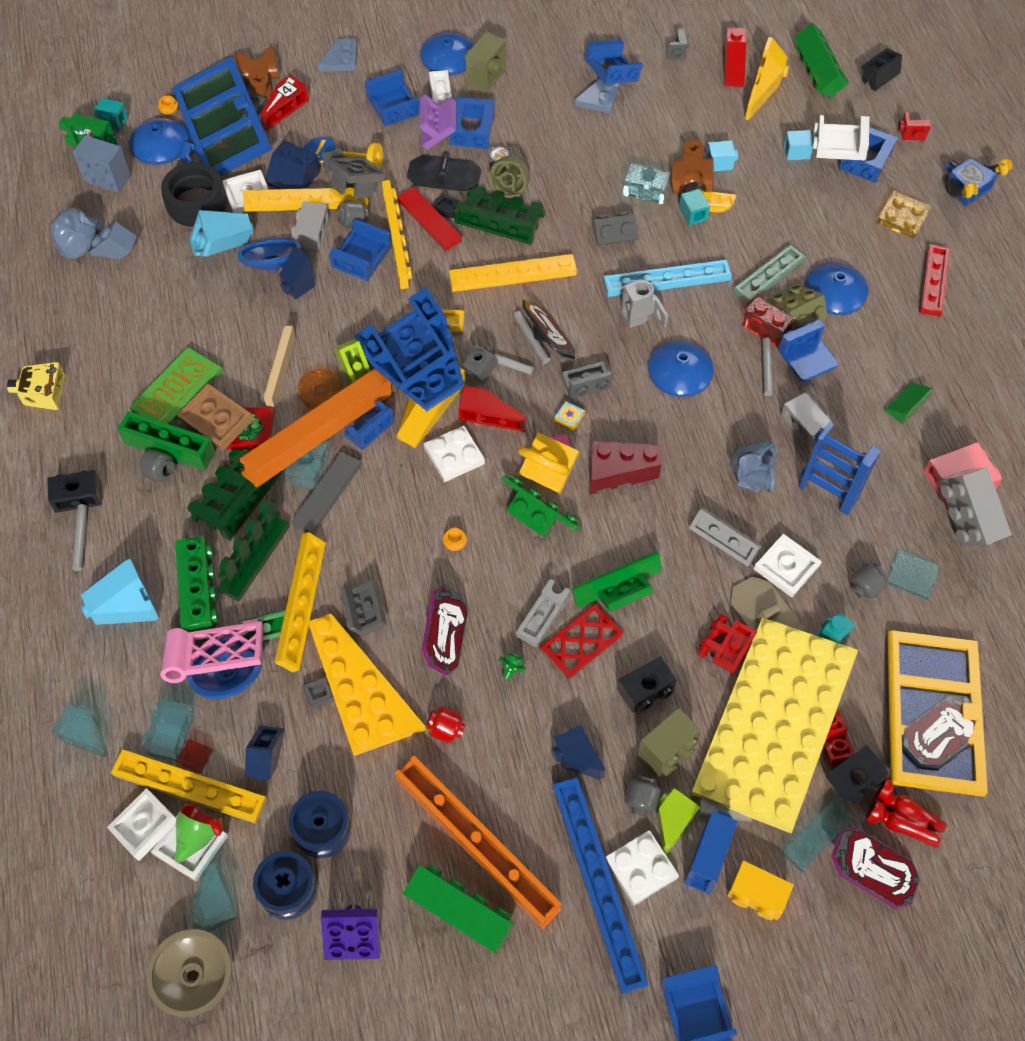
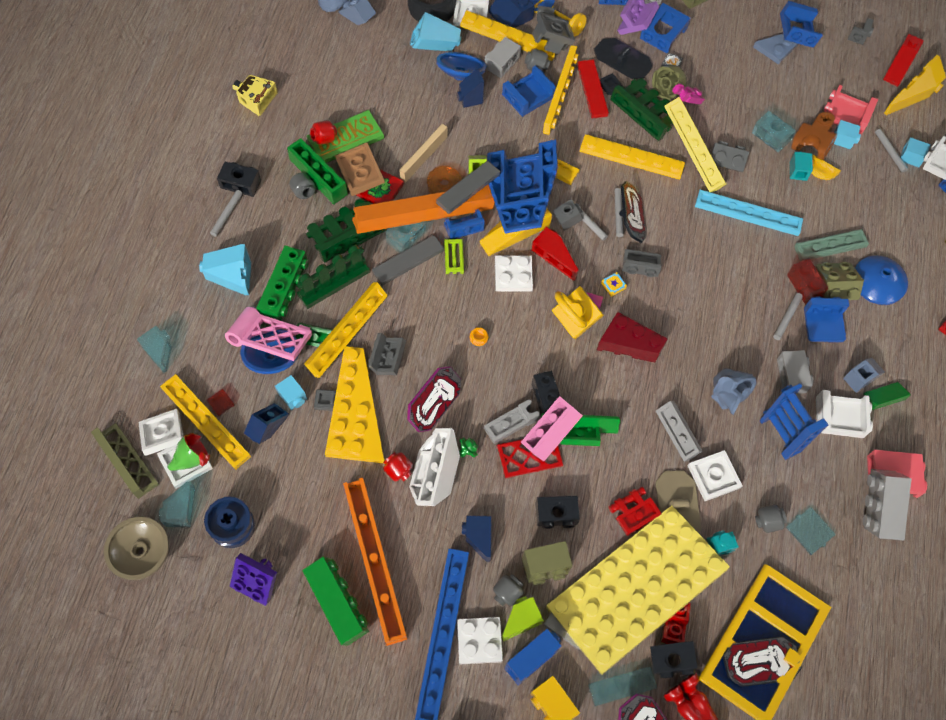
camera: 25 degrees right, 5 degrees up
(108, 886) = (117, 461): none -> olive fence
(149, 394) = (323, 132): none -> red head
(168, 730) = (212, 375): clear light blue brick -> none
(275, 703) = (291, 392): none -> medium azure brick
(313, 810) = (274, 492): dark blue wheel -> none
(356, 380) = (468, 187): none -> dark grey tile
(384, 479) = (454, 269): none -> lime tile
(488, 704) = (435, 468): none -> white wedge
(534, 511) = (548, 344): green bracket -> none
(538, 180) = (688, 94): none -> dark pink hinge
(565, 564) = (545, 390): none -> black brick
(574, 231) = (695, 145): none -> light yellow plate
(594, 597) = (551, 429): none -> bright pink brick
(639, 303) = (714, 223): light grey piece -> none
(679, 376) = (716, 294): blue dish -> none
(711, 127) = (850, 109): none -> coral panel
(773, 153) = (891, 150): none -> light grey bar
(875, 391) = (863, 374): none -> sand blue slope
(886, 434) = (844, 414): none -> white panel

